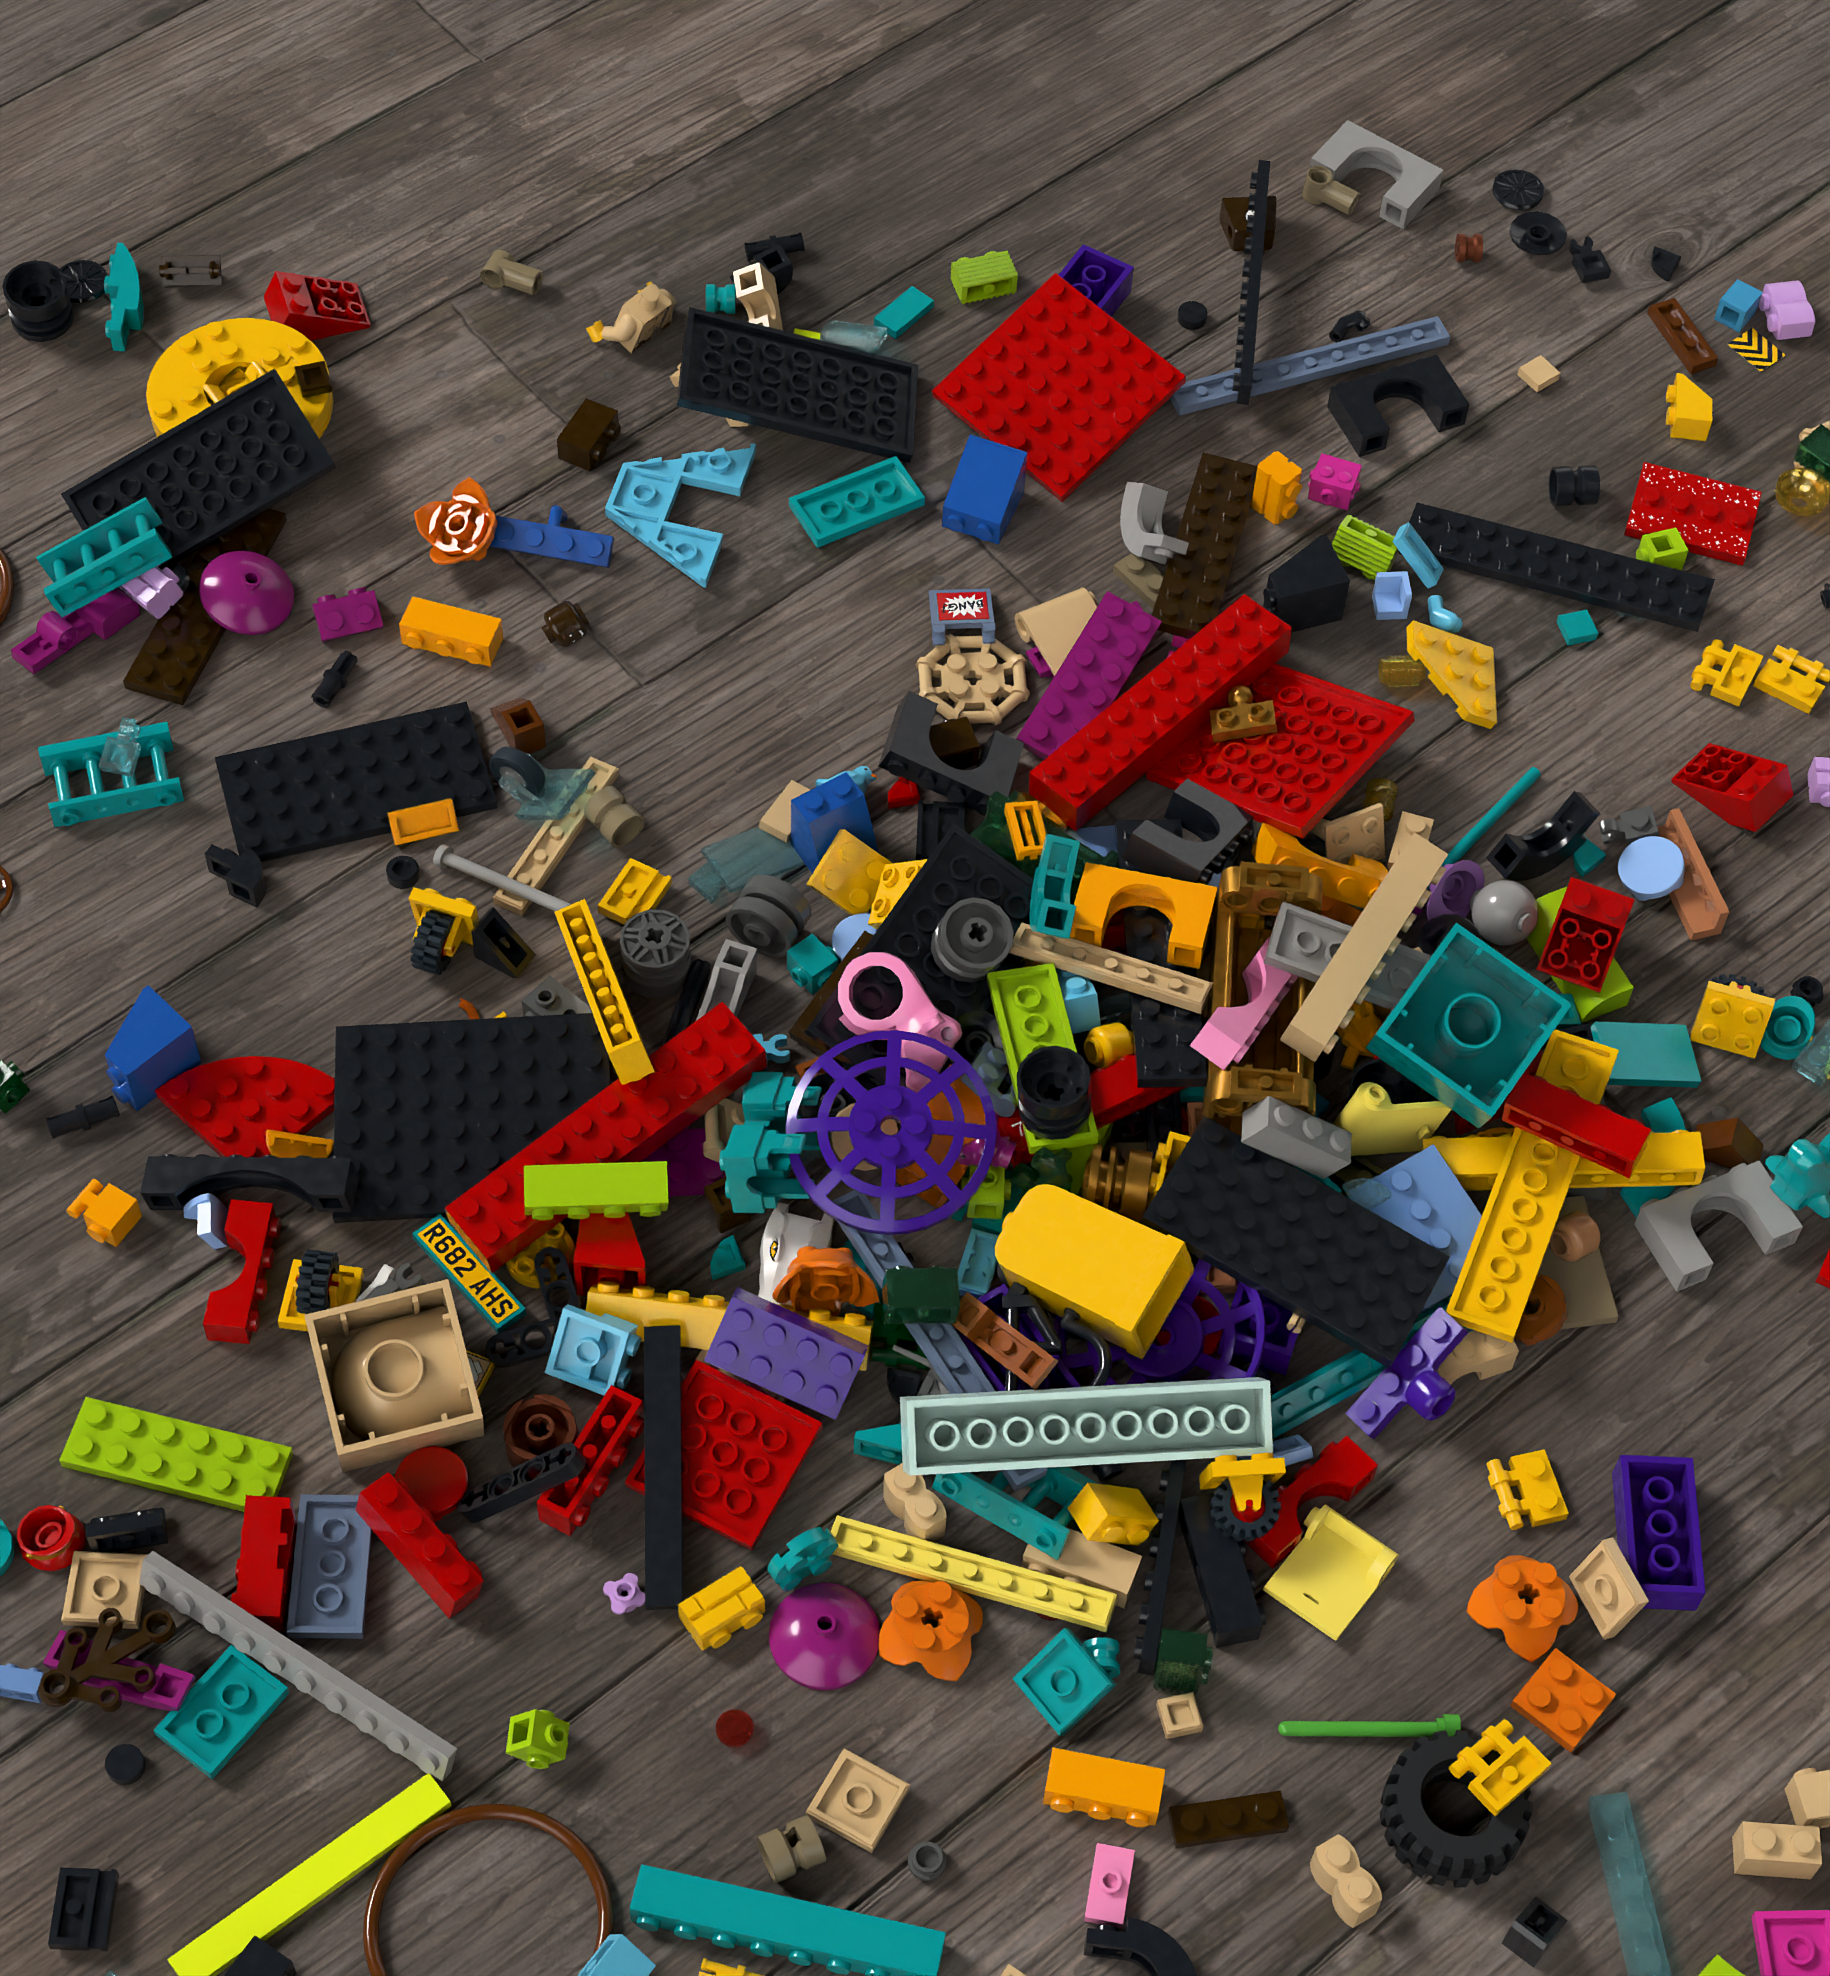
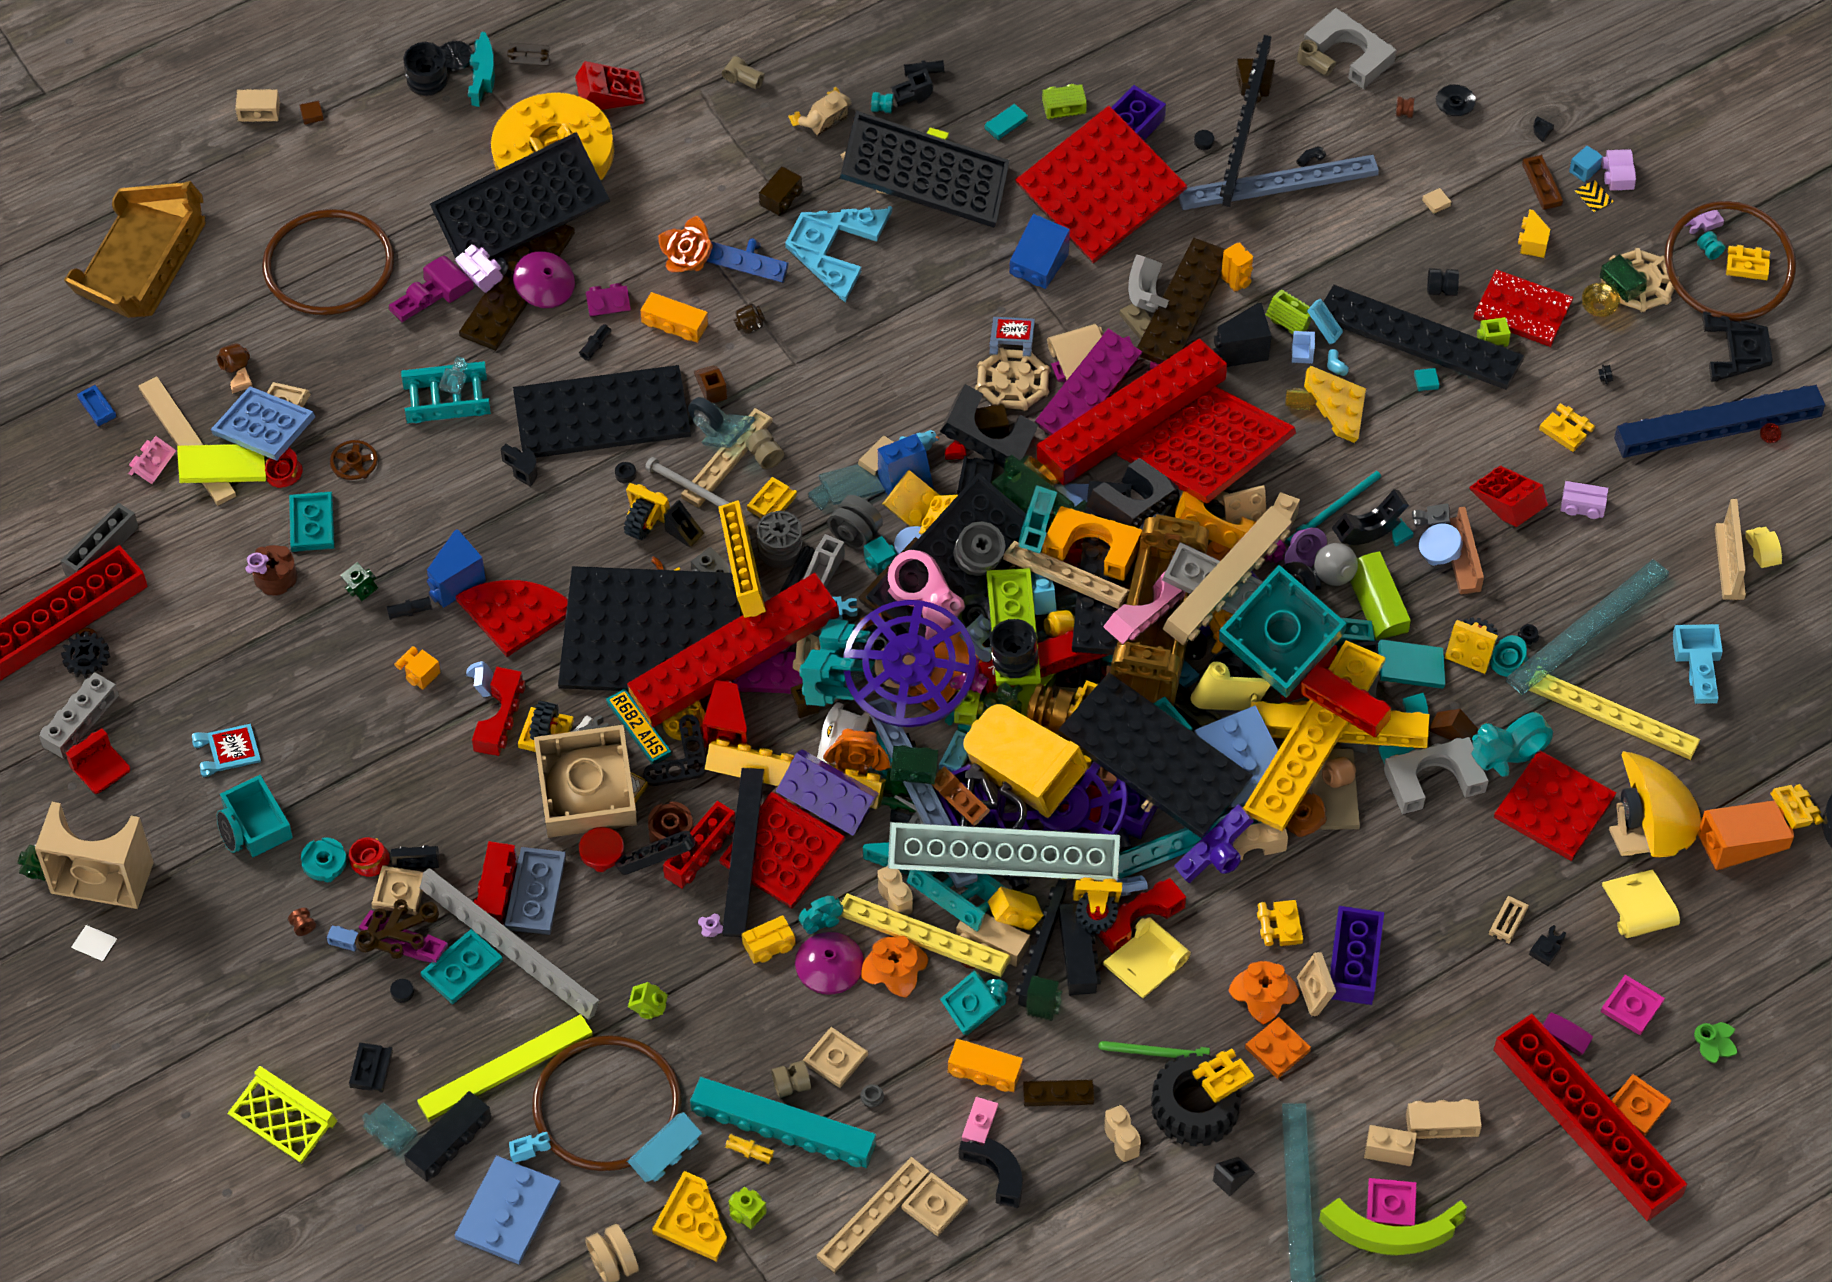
camera: 10 degrees right, 0 degrees up
(110, 570) = (458, 258): teal fence -> none
(173, 1455) = (446, 816): lime plate -> none
(293, 1145) = (540, 641): light orange tile -> none
(313, 379) = (601, 139): dark brown tile -> none
(321, 1182) = (553, 661): black arch -> none
(419, 1544) = (589, 882): red brick -> none
(423, 821) = (641, 441): light orange tile -> none
(593, 1350) = (708, 779): medium azure plate -> none
(595, 1189) = (720, 680): lime brick -> none
(726, 1259) = (800, 734): teal tile -> none
(734, 1728) = (767, 1009): clear red plate -> none
(758, 293) = (907, 103): tan arch -> none
(853, 334) = (969, 136): clear light blue plate -> none
(856, 501) = (954, 252): teal plate -> none
(1021, 807) = (1027, 494): light orange tile -> none
(1179, 1715) = (1039, 1031): tan tile -> none
(1243, 716) = (1185, 421): pearl gold plate -> none
(1296, 1137) = (1164, 691): light grey brick -> none
(1334, 481) = (1279, 265): dark pink head -> none
(1366, 1192) = (1206, 730): clear light blue tile -> none
(1384, 792) = (1271, 480): clear yellow wheel -> none
(1420, 381) = (1353, 200): black arch -> none
(1518, 189) = (1449, 66): black wheel -> none
(1585, 934) = (1383, 583): red slope -> none
(1588, 263) = (1487, 124): black plate -> none
(1736, 675) = (1527, 420): yellow plate -> none

